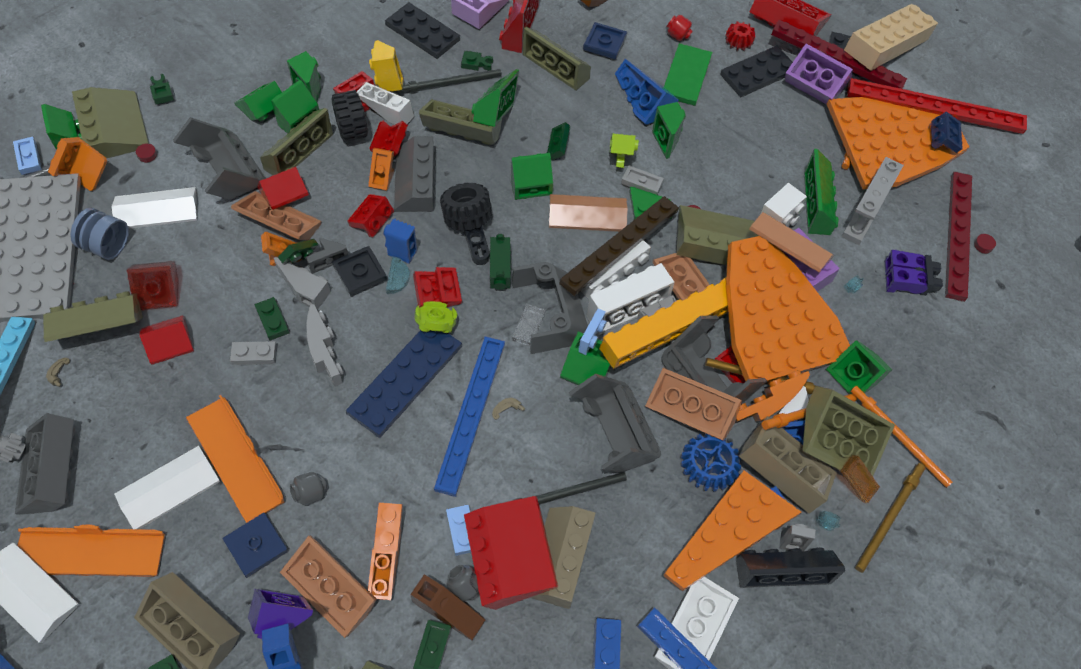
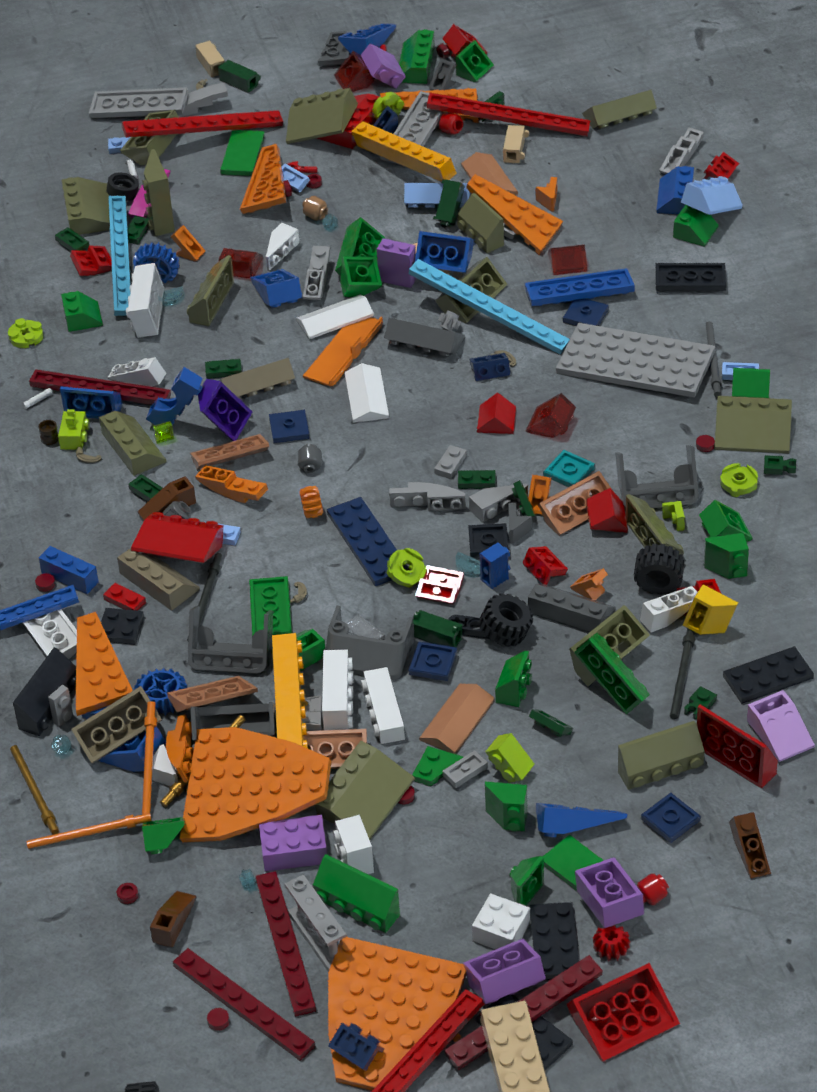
camera: 125 degrees right, 15 degrees down
(78, 157) = (711, 384): orange bracket -> none
(79, 375) = (490, 366): none -> dark blue bracket
(91, 317) = (531, 373): olive slope -> none
(99, 233) = (615, 391): sand blue wheel -> none
(156, 207) = (639, 436): white slope -> none
(185, 104) = (739, 487): none -> lime plate
(225, 246) = (569, 468): none -> teal tile
(235, 459) = (365, 432): orange piece -> none
(259, 137) = (674, 511): none -> lime bracket
(293, 106) = (691, 536): green slope -> none
(382, 447) = (311, 502): none -> orange gear
(389, 137) = (624, 594): red bracket -> none
(469, 417) = (310, 570): blue tile -> none
(537, 249) = (433, 661): none -> dark blue plate
(541, 424) = (270, 595): none -> green tile
(590, 337) = (312, 638): light blue plate -> none
(606, 578) = (124, 597): none -> red plate
(618, 246) = (392, 705): dark brown plate -> none
(644, 558) = (122, 625): none -> black plate
(713, 34) = (609, 892): none -> medium lavender brick
(731, 93) = (527, 879): none -> green slope
(774, 99) = (500, 922): none -> white brick
(791, 242) = (305, 815): nougat slope -> none
(843, 428) = (113, 771): olive slope -> none
(860, 478) = (74, 774): clear orange tile -> none
(886, 233) = (285, 944): none -> dark red plate
(911, 273) = (226, 927): dark purple hips -> none
(932, 370) = (127, 893): none -> dark red tile
(935, 314) = (171, 918): none -> reddish brown slope

